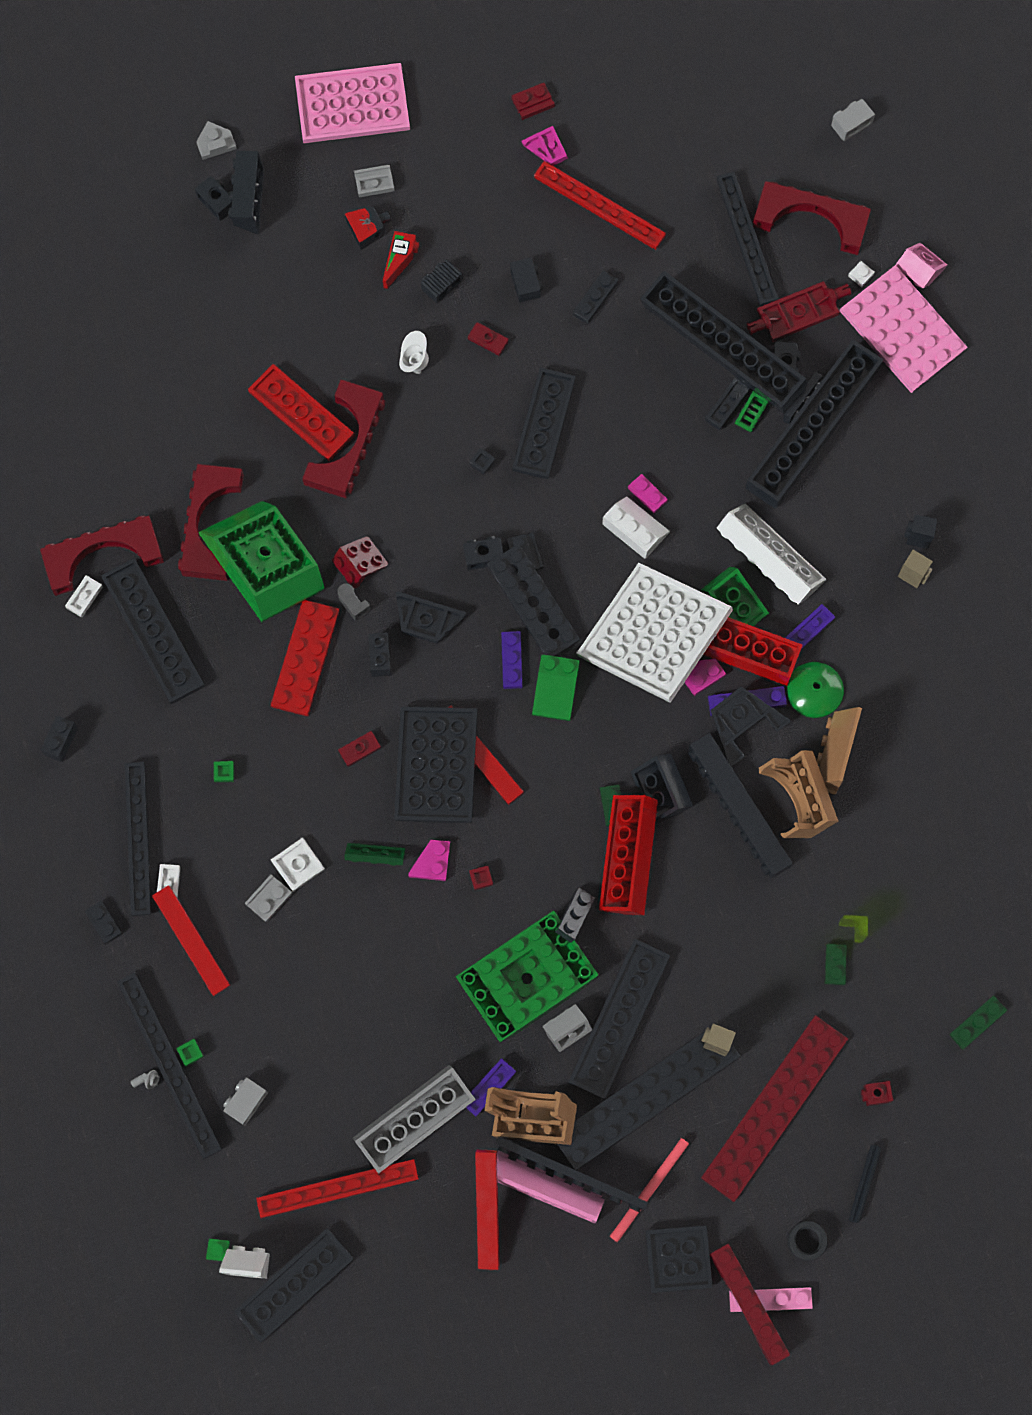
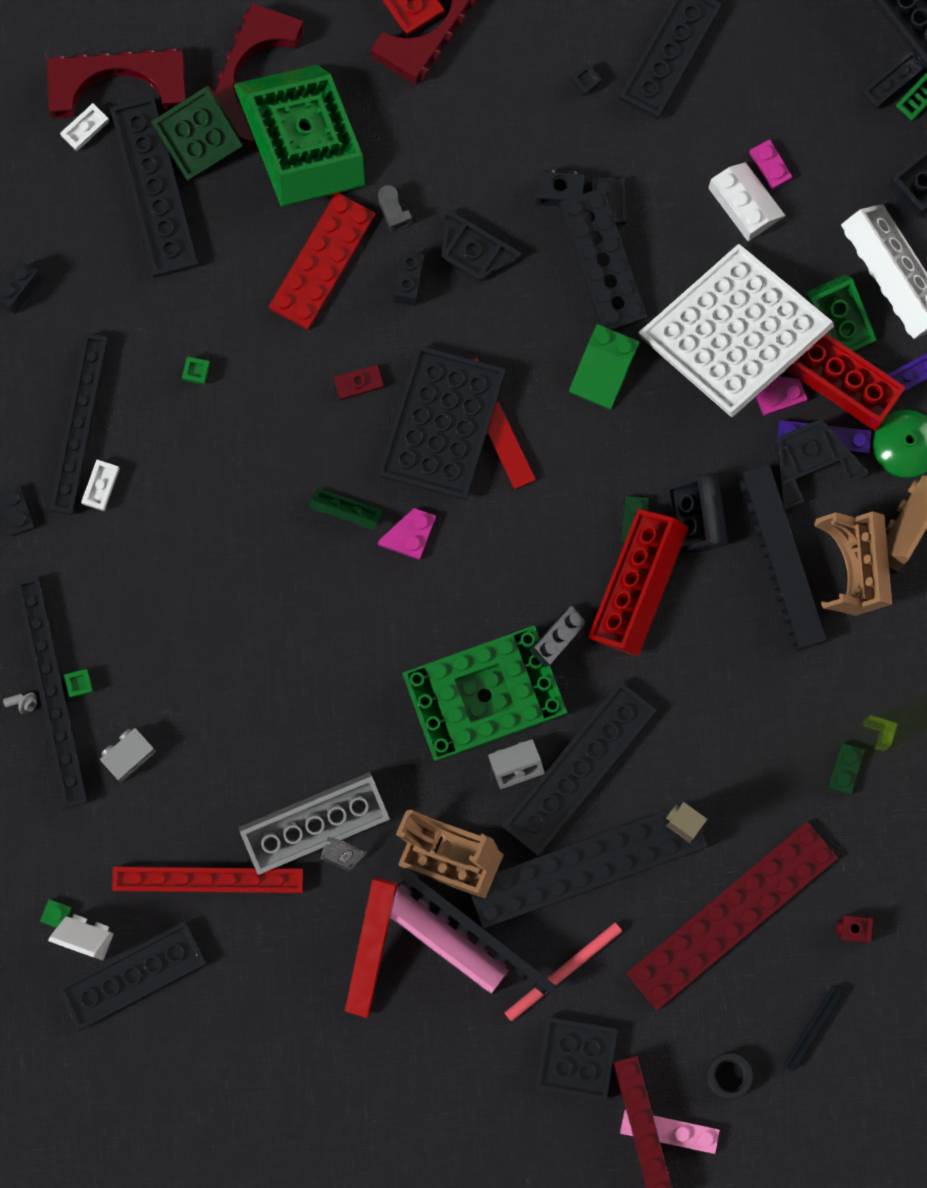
camera: 15 degrees right, 5 degrees up
(178, 578) = (197, 133): none -> dark green plate
(191, 940) = (110, 555): red tile -> none
(268, 898) = (211, 529): light grey plate -> none
(297, 864) = (254, 499): white tile -> none
(359, 560) = (412, 162): dark red bracket -> none
(443, 1138) = (341, 854): none -> slope
(481, 877) = (461, 566): dark red plate -> none
(497, 1077) = (420, 801): dark purple plate -> none
(511, 660) = (561, 322): dark purple plate -> none

